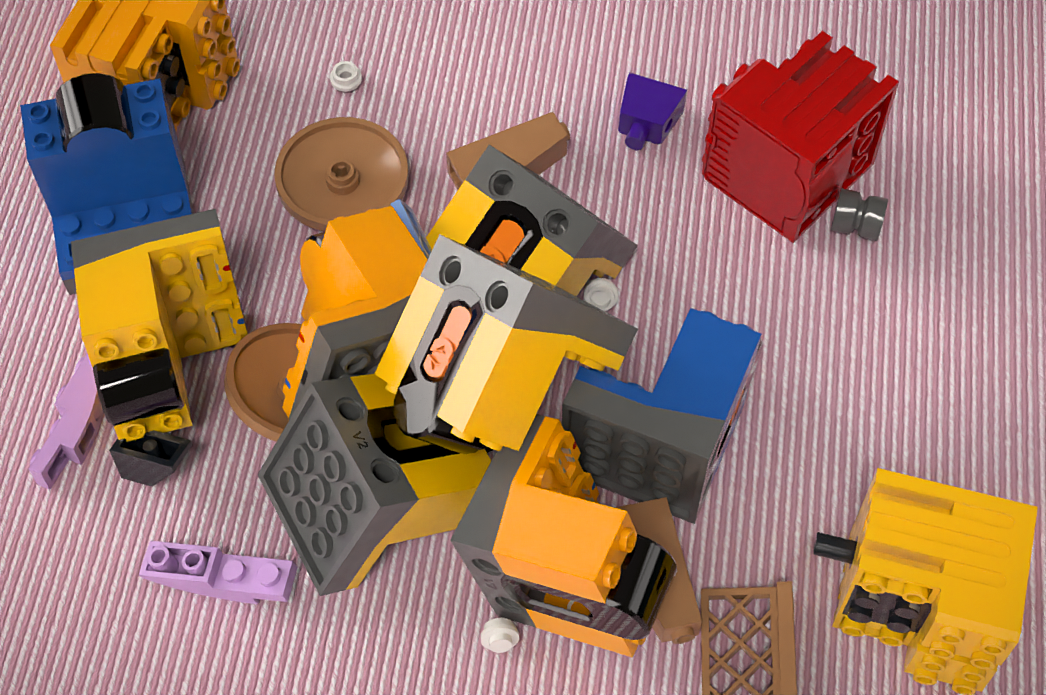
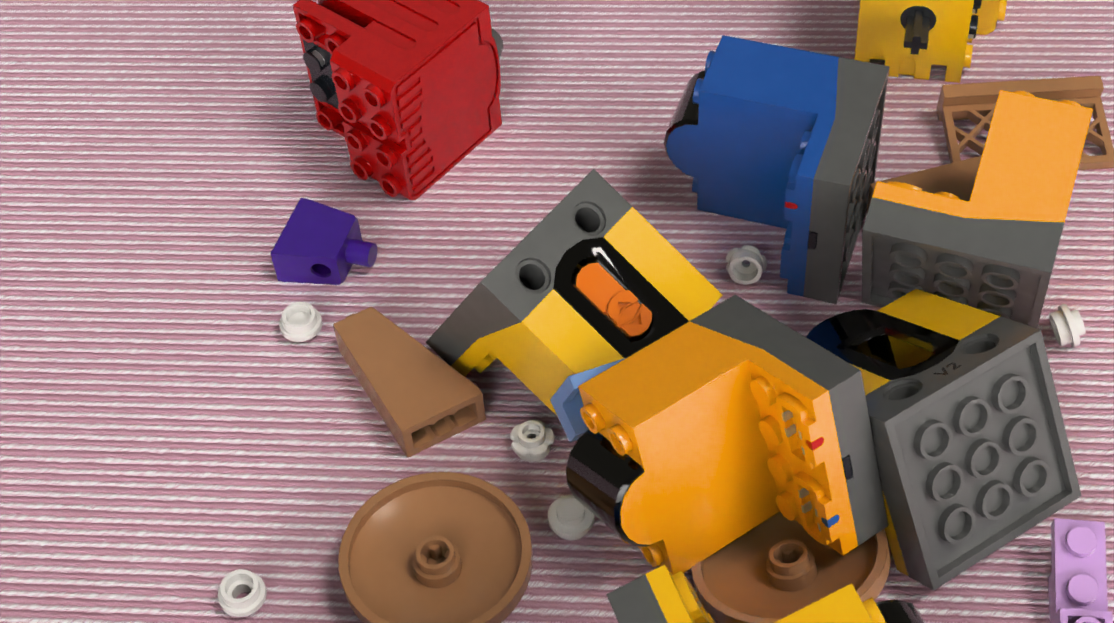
camera: 90 degrees left, 10 degrees down
(485, 348) = (819, 226): piece -> none
(575, 102) = (300, 322): none -> white plate

